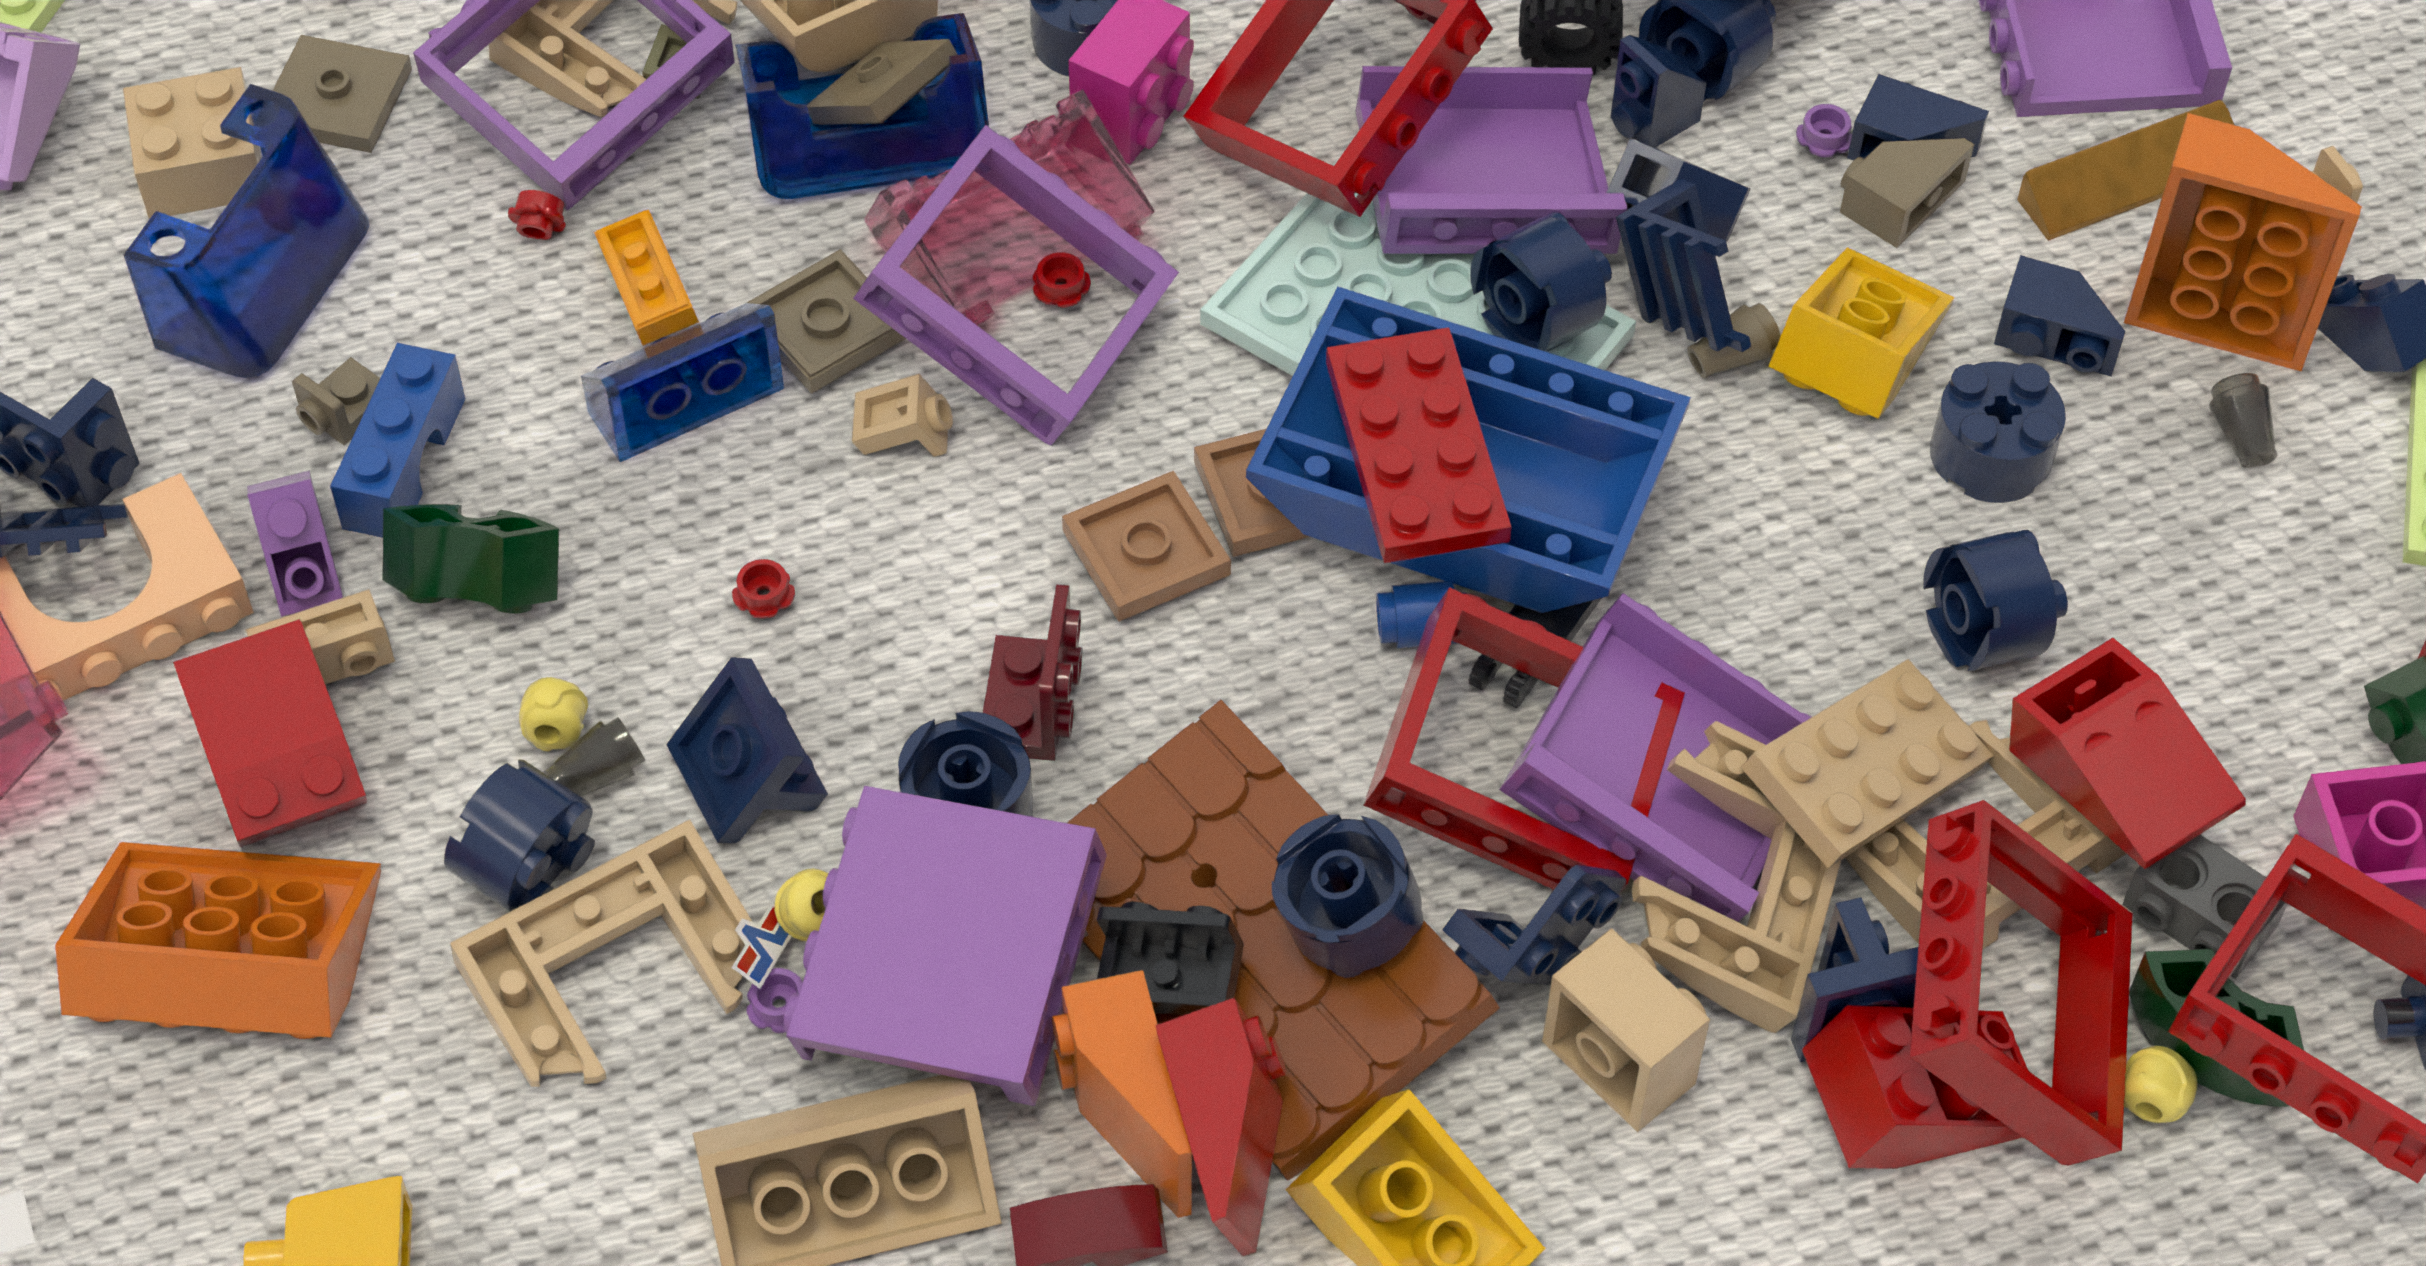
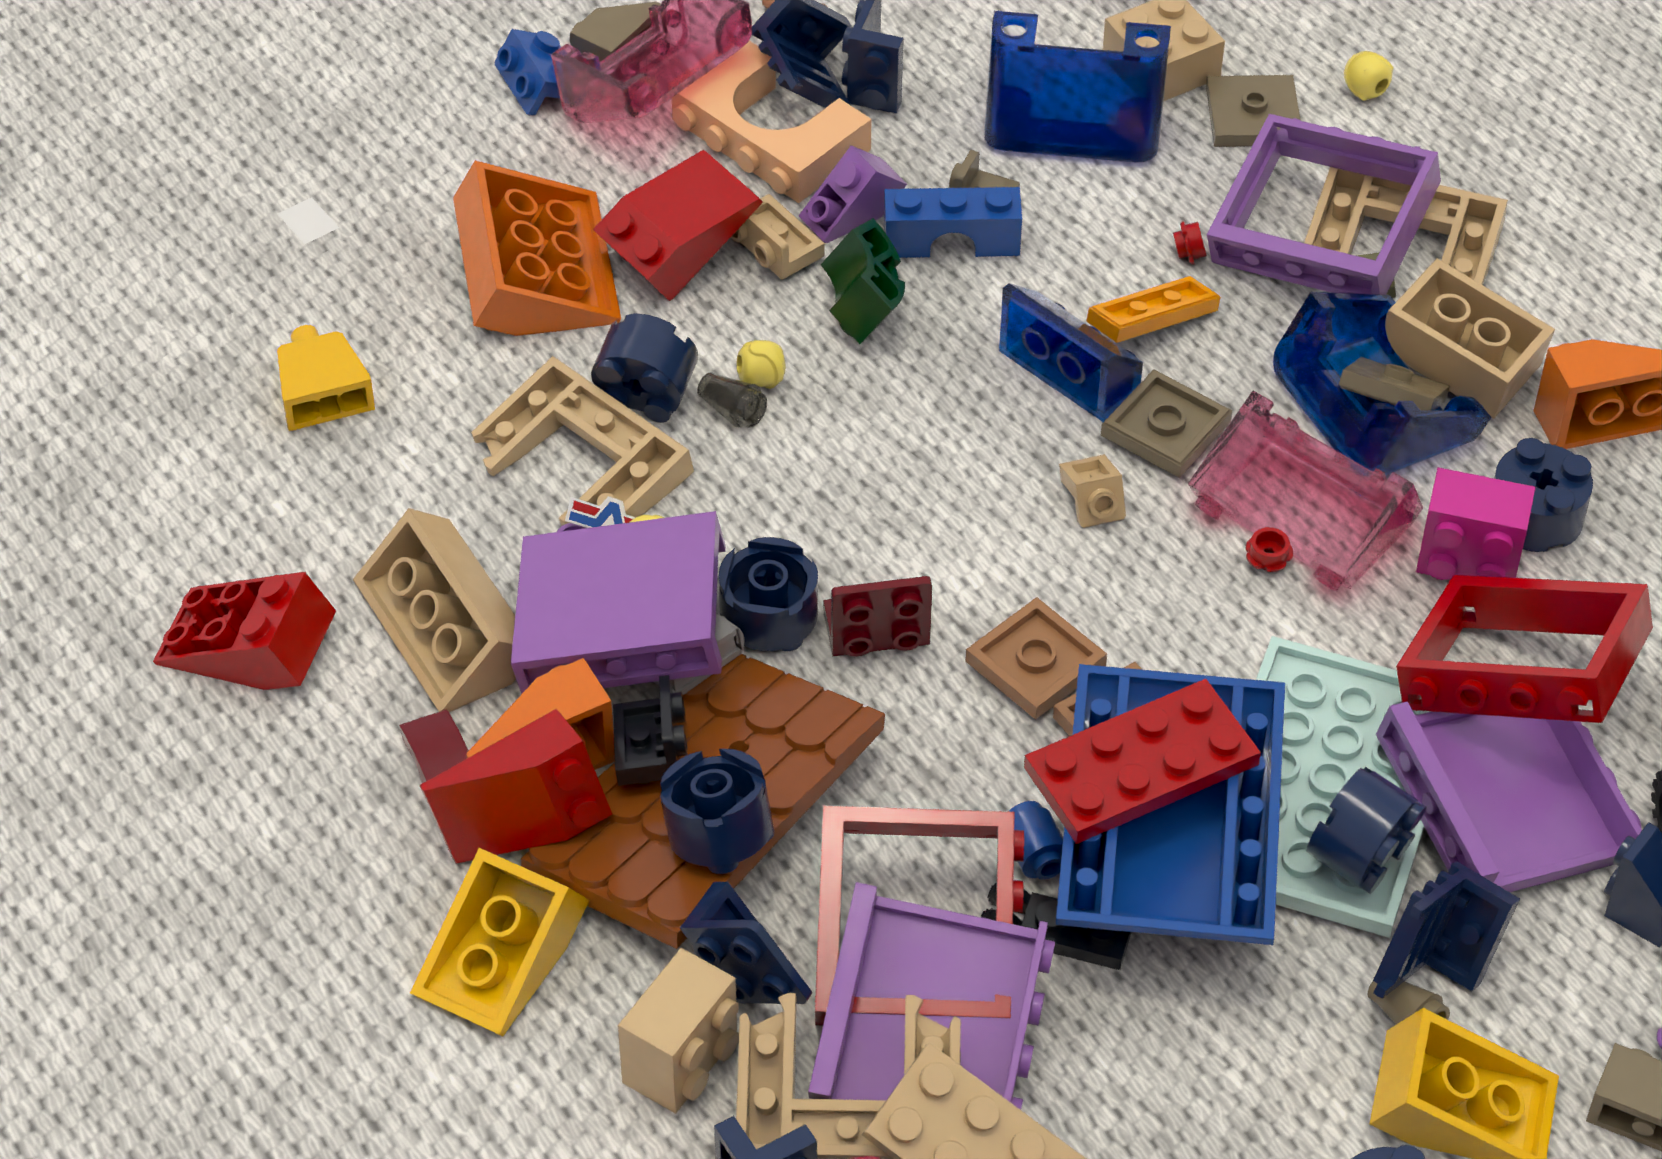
camera: 75 degrees right, 5 degrees down
(743, 754) = (763, 476): dark blue bracket -> none
(763, 575) = (911, 449): red plate -> none
(966, 347) = (1207, 590): medium lavender window -> none
(1648, 170) = (1547, 925): dark blue slope -> none

